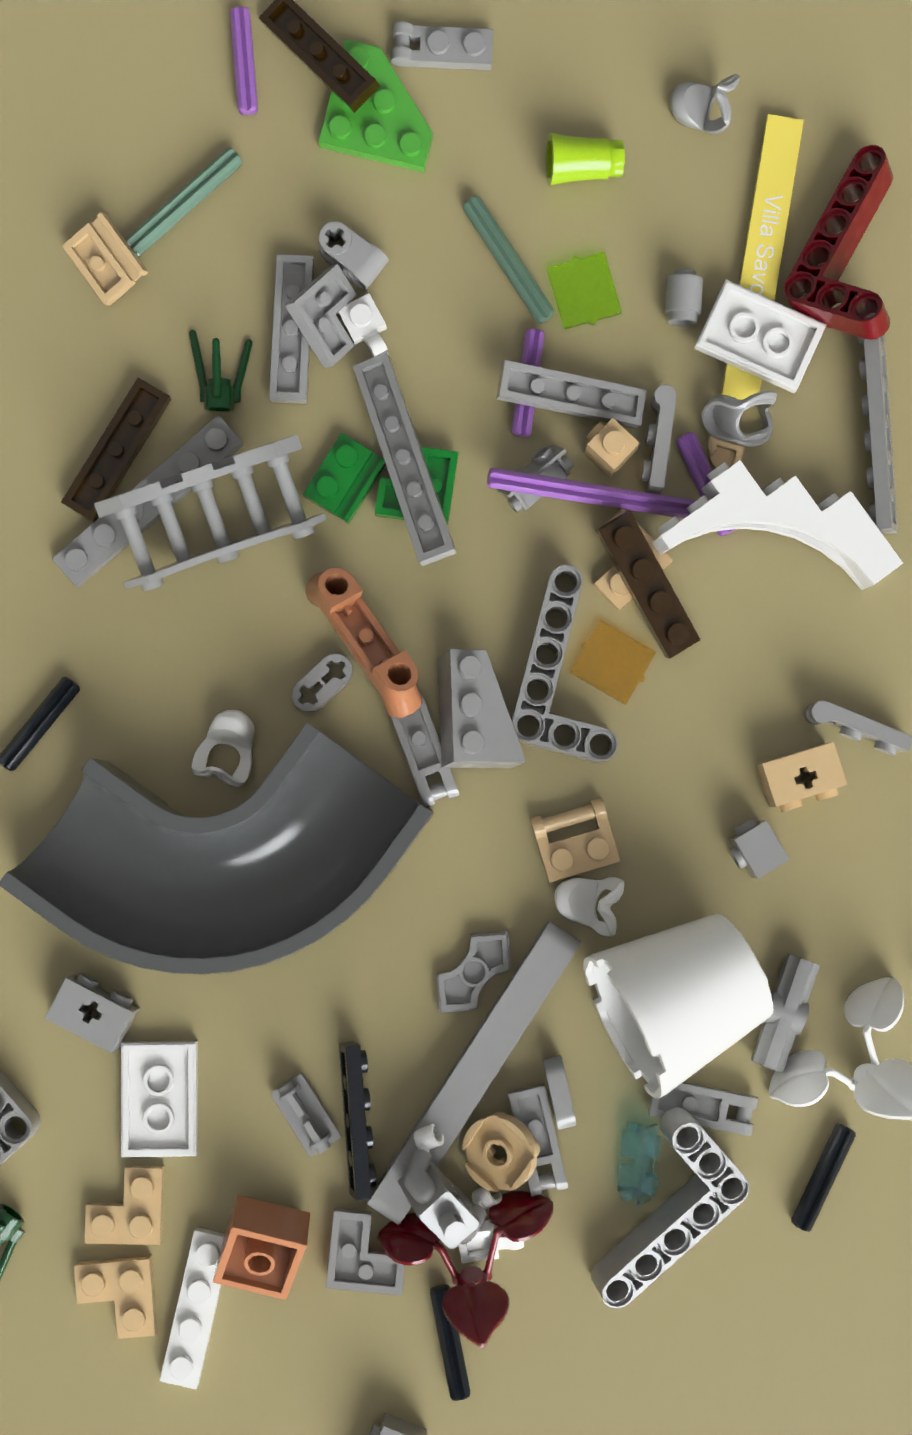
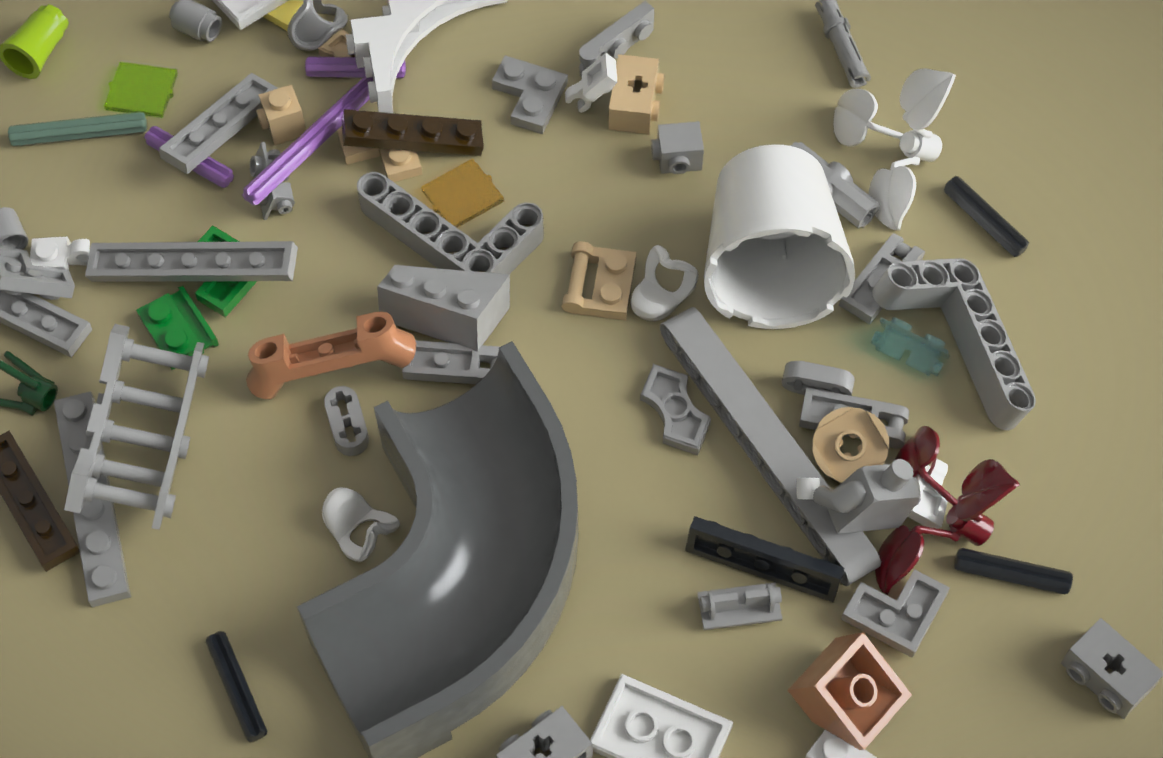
camera: 65 degrees left, 25 degrees down
(659, 438) = (306, 83): light grey plate -> none
(769, 675) = (537, 88): none -> light grey plate
(789, 736) = (596, 81): none -> white plate

